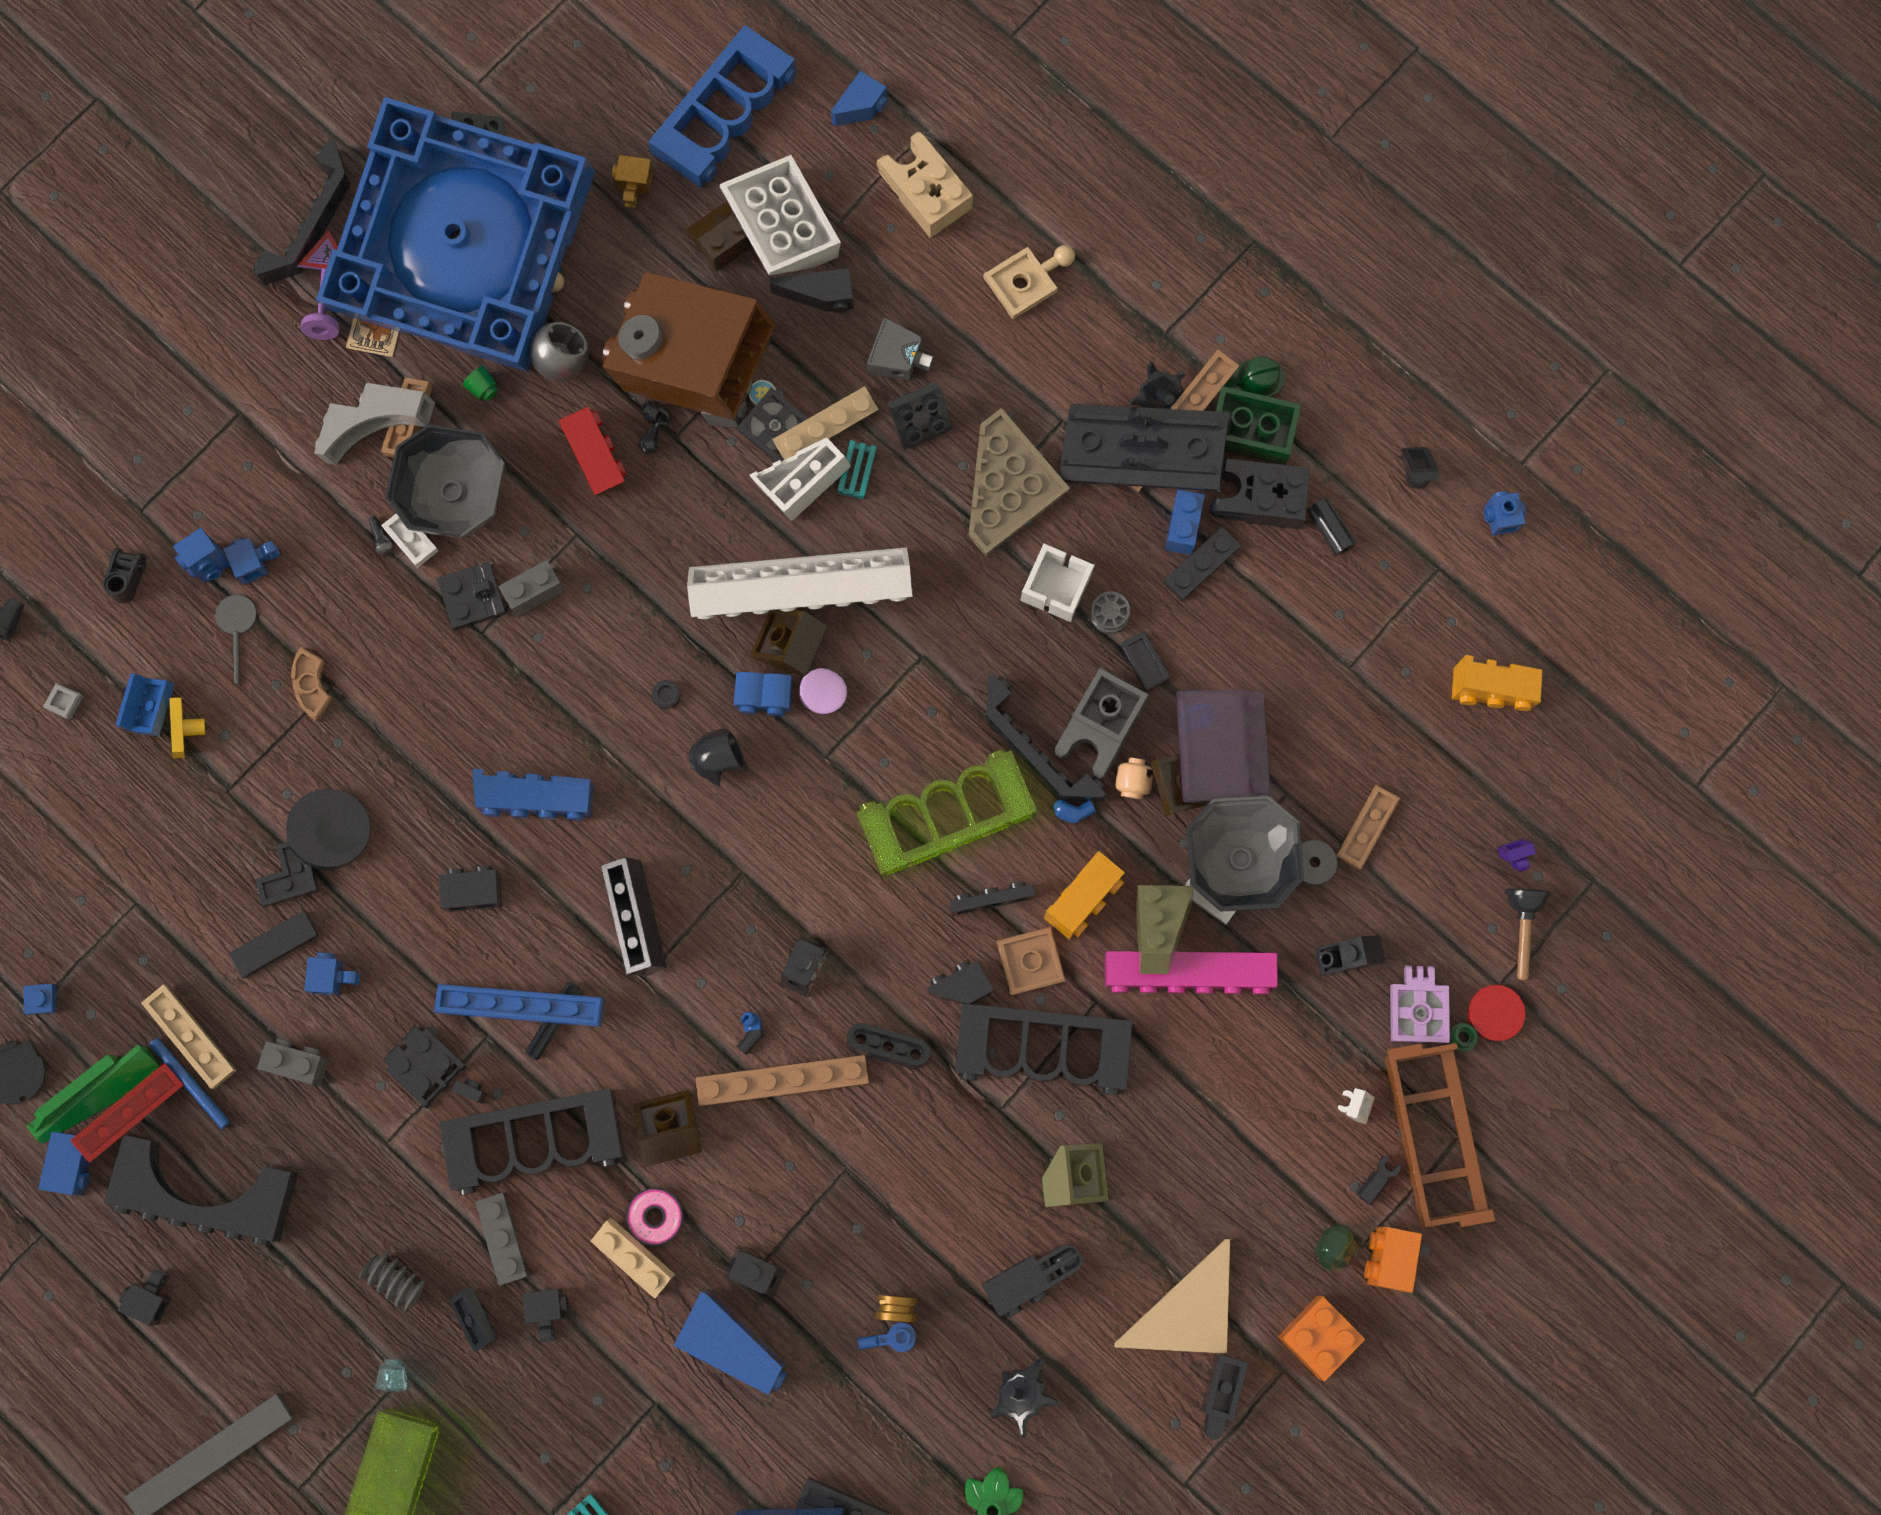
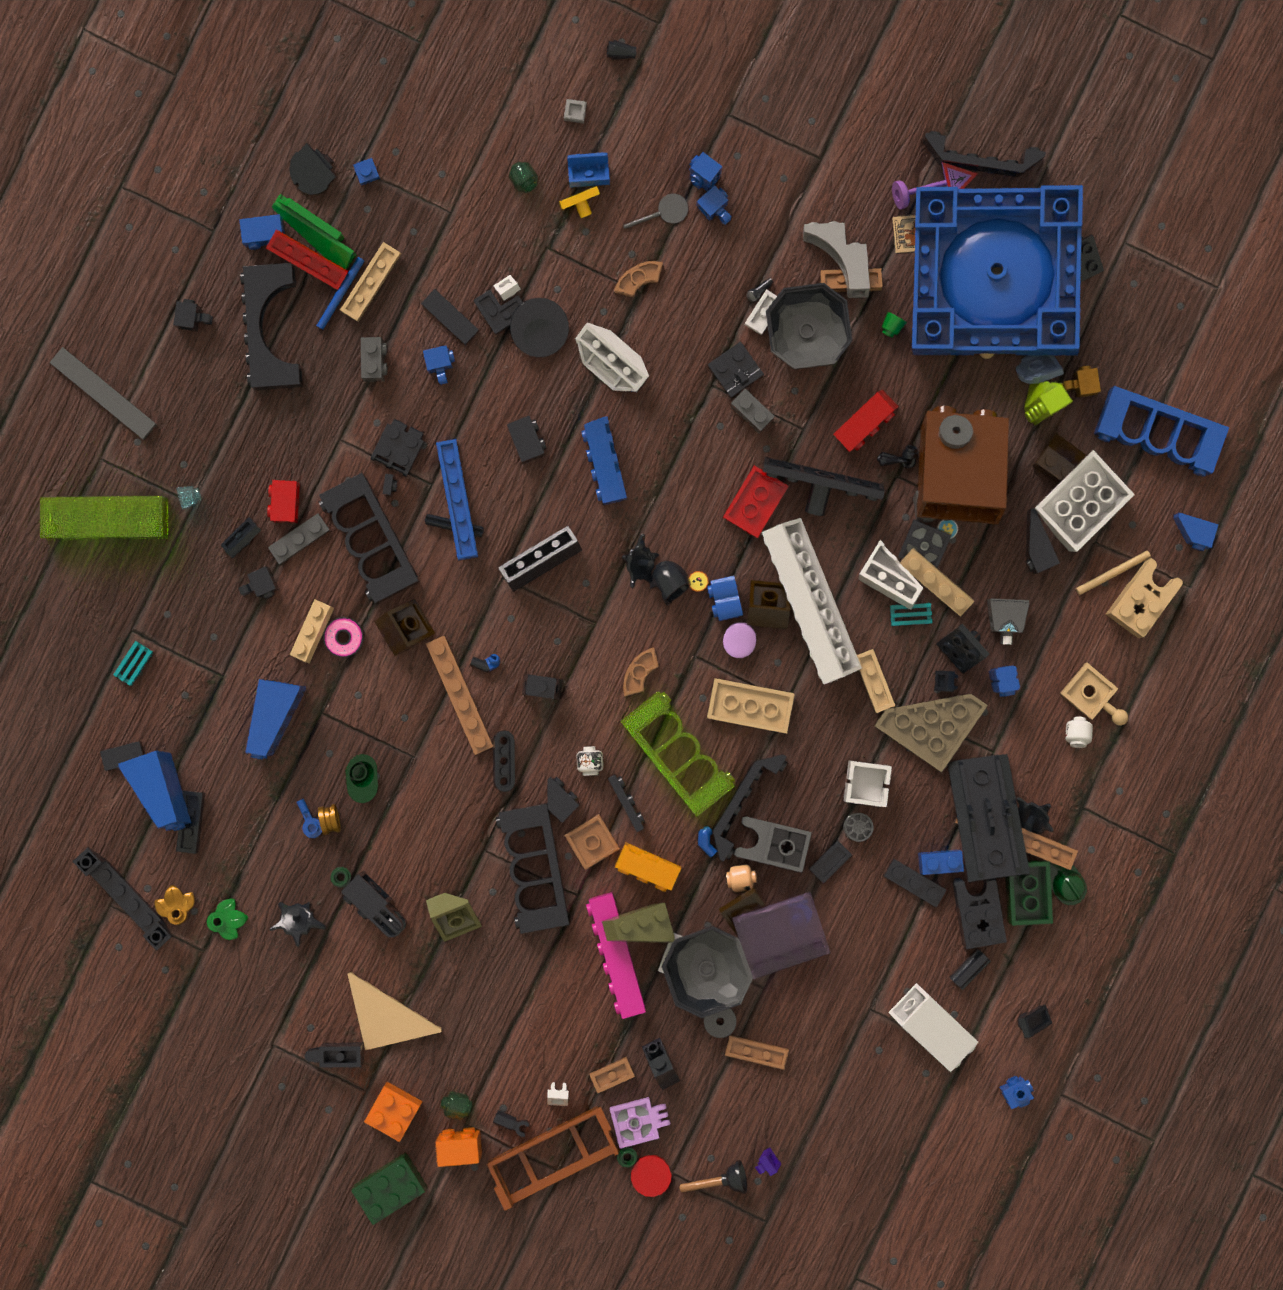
camera: 75 degrees right, 10 degrees up
(123, 792) = (523, 177): none -> clear green head
(126, 570) = (678, 119): black piece -> none
(261, 856) = (507, 287): none -> white plate
(392, 1281) = (250, 476): dark grey piece -> none
(402, 748) = (611, 359): none -> white wedge
(443, 1243) = (284, 501): none -> red brick
(559, 351) = (932, 373): flat silver wheel -> none
(596, 223) = (1038, 368): none -> sand blue tile
(637, 223) = (1044, 401): none -> lime wedge
(650, 619) = (755, 502): none -> red plate
(654, 528) = (821, 483): none -> black plate
(666, 694) = (705, 530): black tile -> none
(680, 787) = (640, 562): none -> black piece
(730, 720) = (698, 581): none -> light yellow tile
(754, 1272) = (325, 715): black torso -> none
(823, 834) = (638, 670): none -> medium nougat tile
(853, 1246) = (361, 778): none -> dark green piece
(881, 213) = (1113, 572): none -> tan bar
(912, 702) = (750, 705): none -> tan plate
(922, 931) = (589, 761): none -> white head
(930, 537) = (875, 681): none -> tan plate
(954, 451) = (945, 681): none -> black tile
(975, 376) = (1004, 680): none -> blue brick
(980, 1327) = (334, 877): none -> dark green plate
(1068, 308) = (1079, 732): none -> white head
(1348, 1024) = (612, 1075): none -> medium nougat plate
(1394, 592) = (933, 1027): none -> white slope
(1425, 1375) = (389, 1188): none -> dark green brick
(1496, 684) = (886, 1118): light orange wedge -> none

